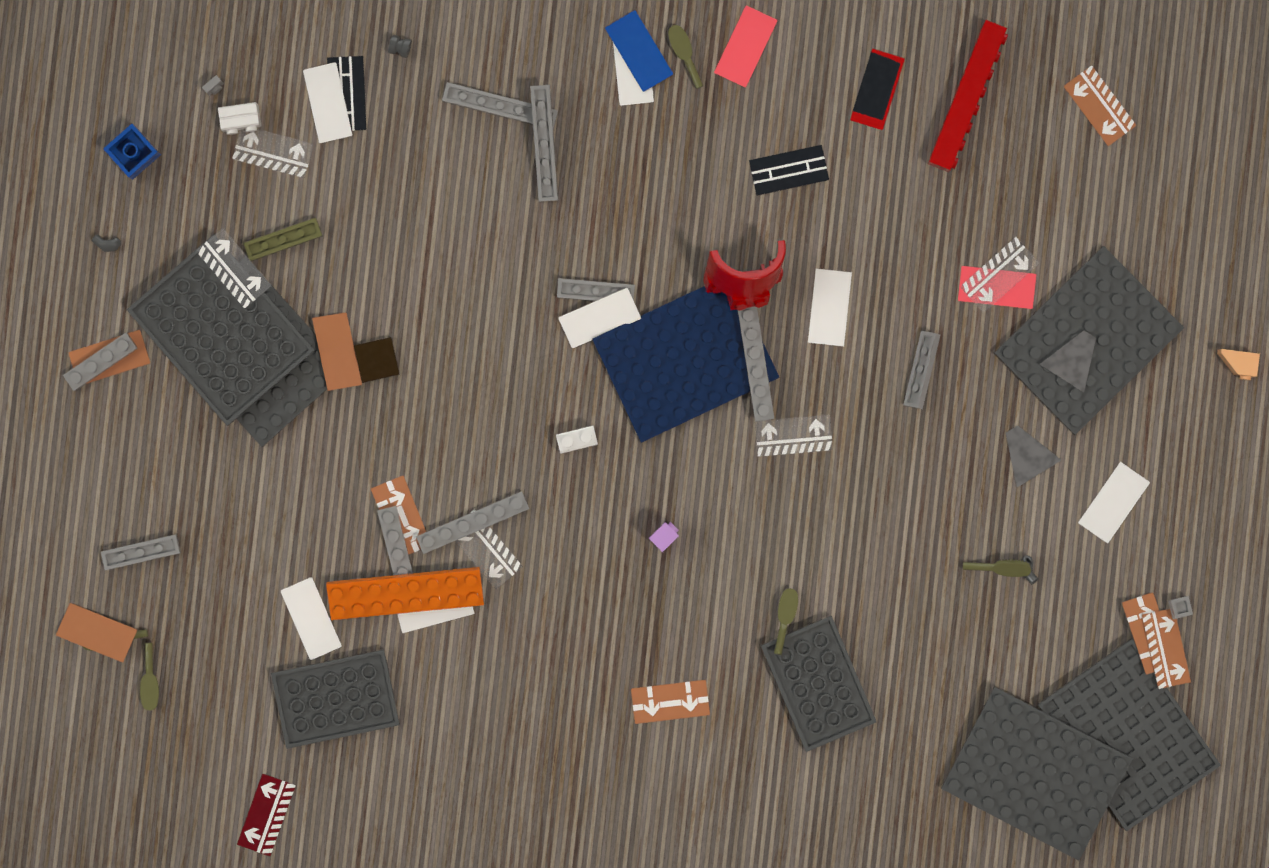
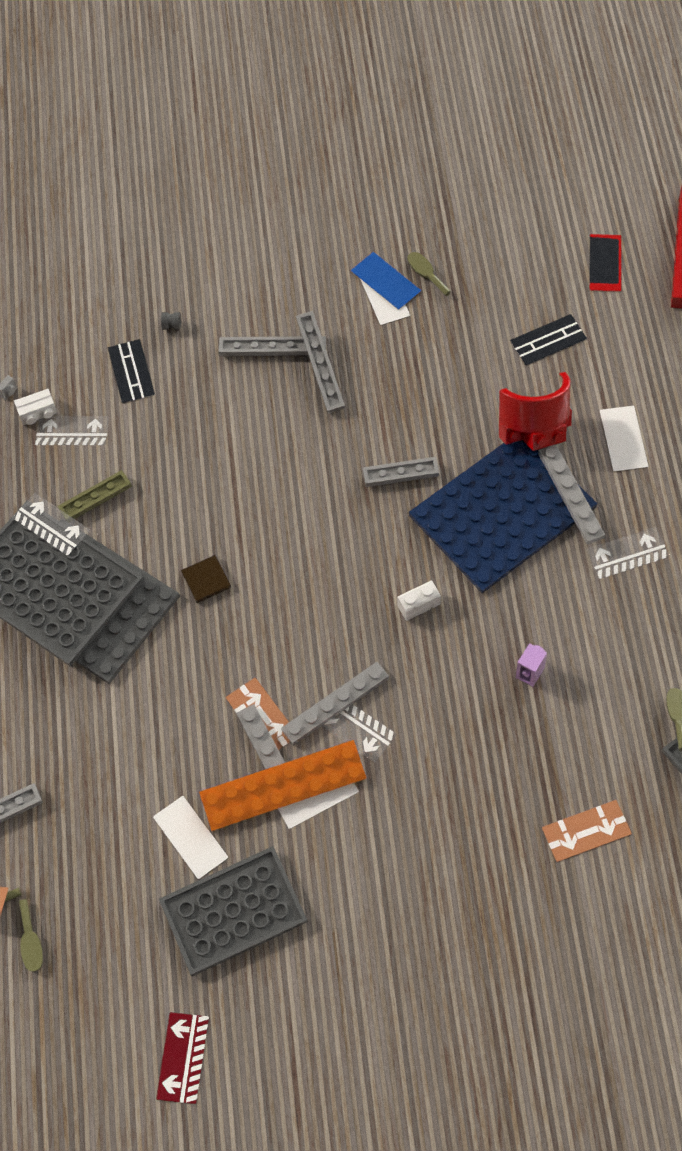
camera: 10 degrees left, 25 degrees down
(327, 102) = (115, 381): white sticker -> none
(337, 351) = (165, 578): nougat sticker -> none
(599, 317) = (410, 492): white sticker -> none
(745, 46) = (478, 257): coral sticker -> none

